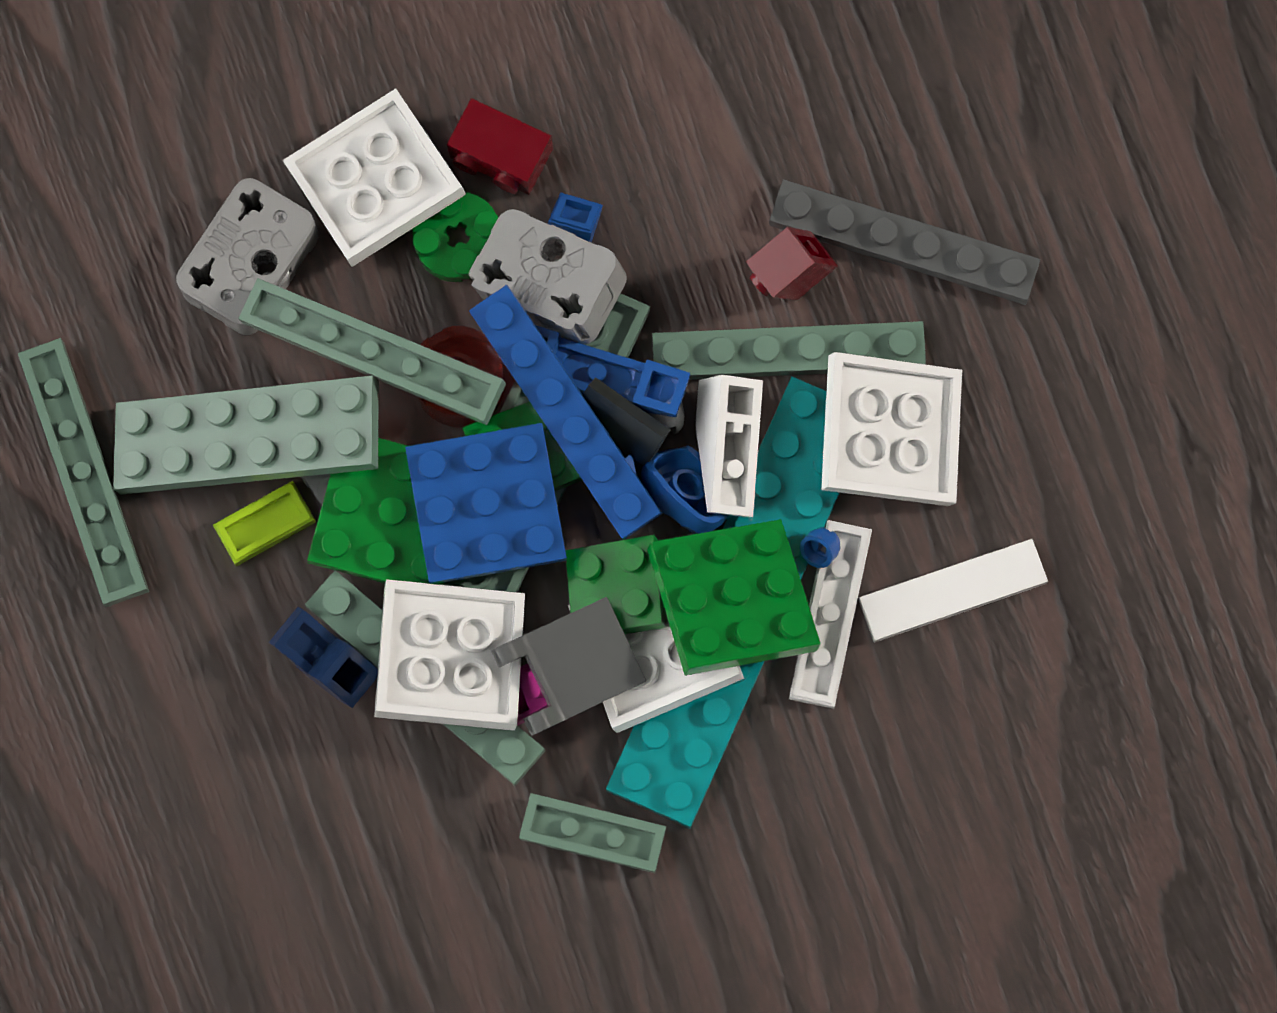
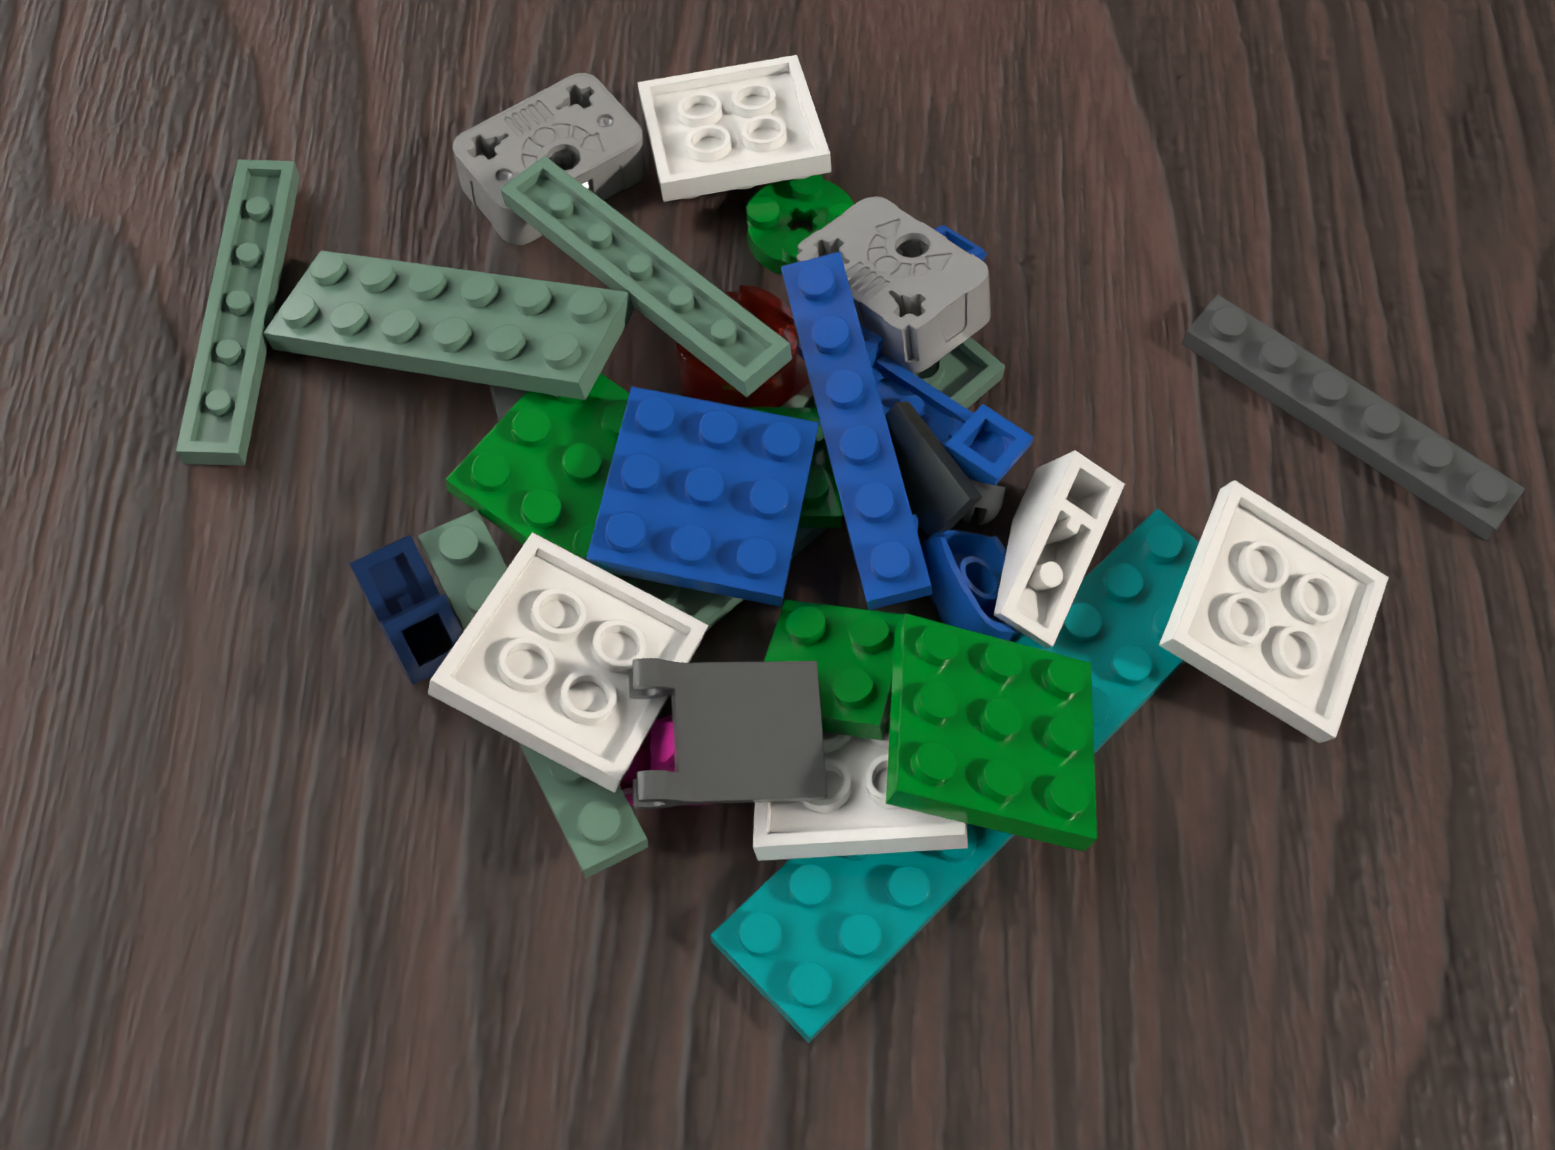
camera: 15 degrees right, 15 degrees down
(264, 523) = (420, 440): lime tile -> none
(499, 147) = (891, 149): dark red brick -> none
(592, 833) = (667, 991): sand green plate -> none
(785, 349) = (1160, 478): sand green plate -> none
(790, 264) = (1204, 369): brick -> none
(814, 541) = (1123, 713): blue hinge -> none
(833, 611) = (1127, 802): white tile -> none
(953, 590) = (1297, 854): white tile -> none

